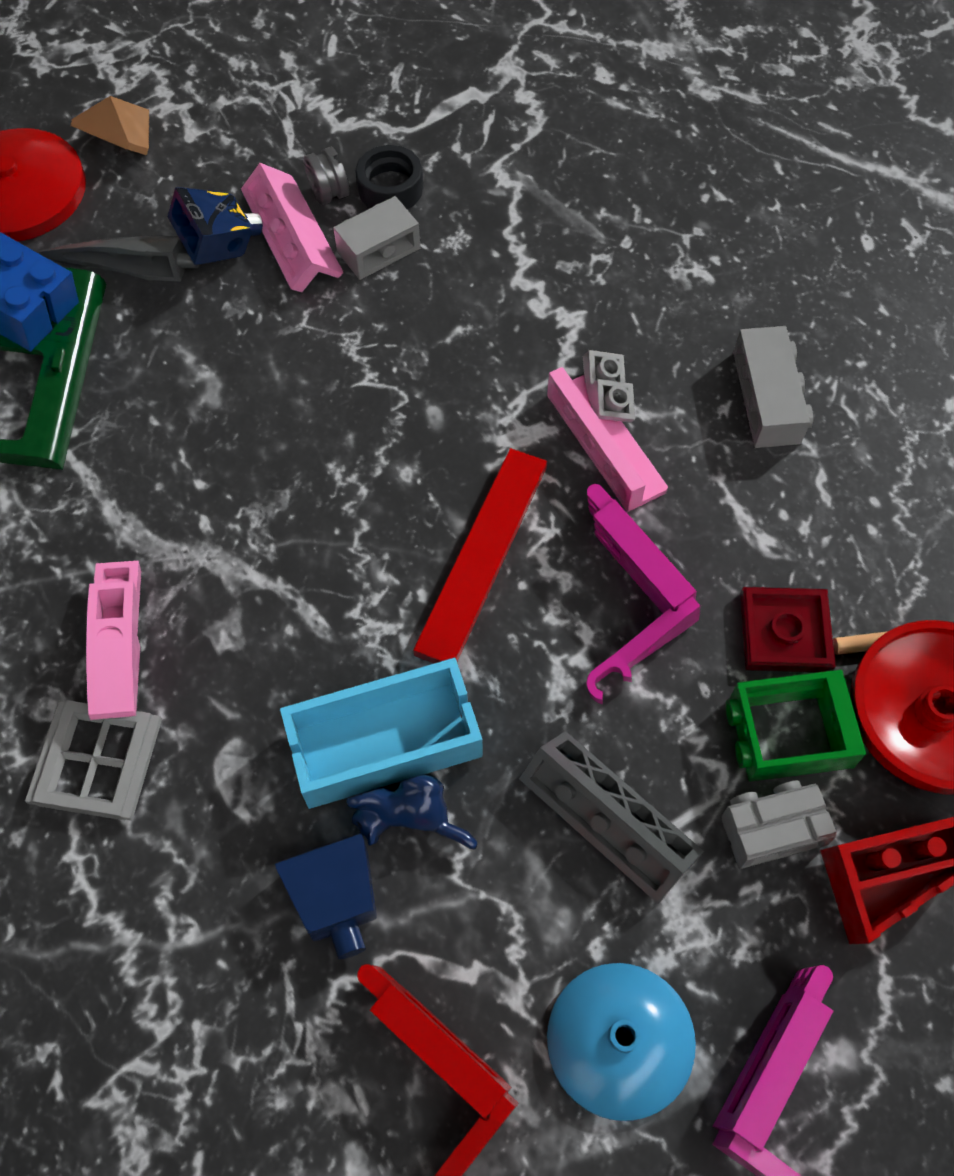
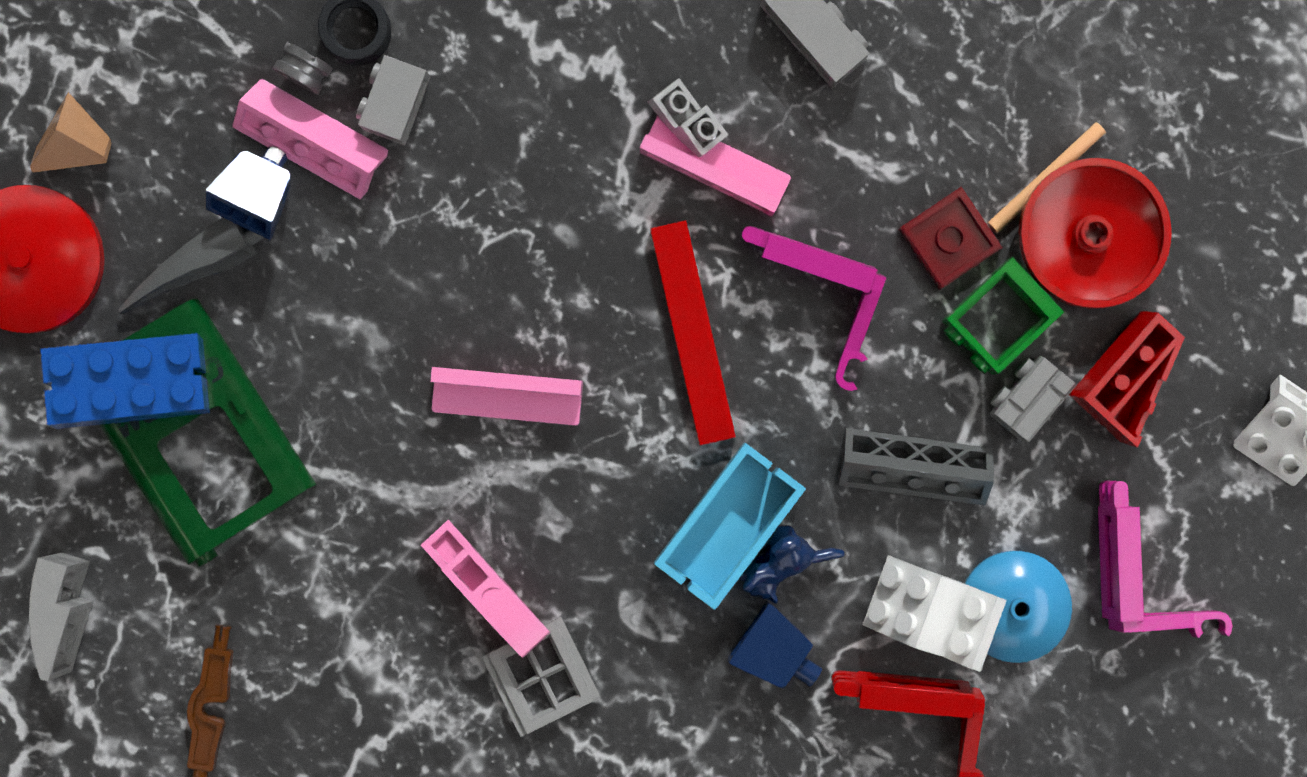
camera: 30 degrees left, 25 degrees up
(281, 498) = (506, 396): none -> bright pink panel
(527, 971) = (934, 613): none -> white bracket

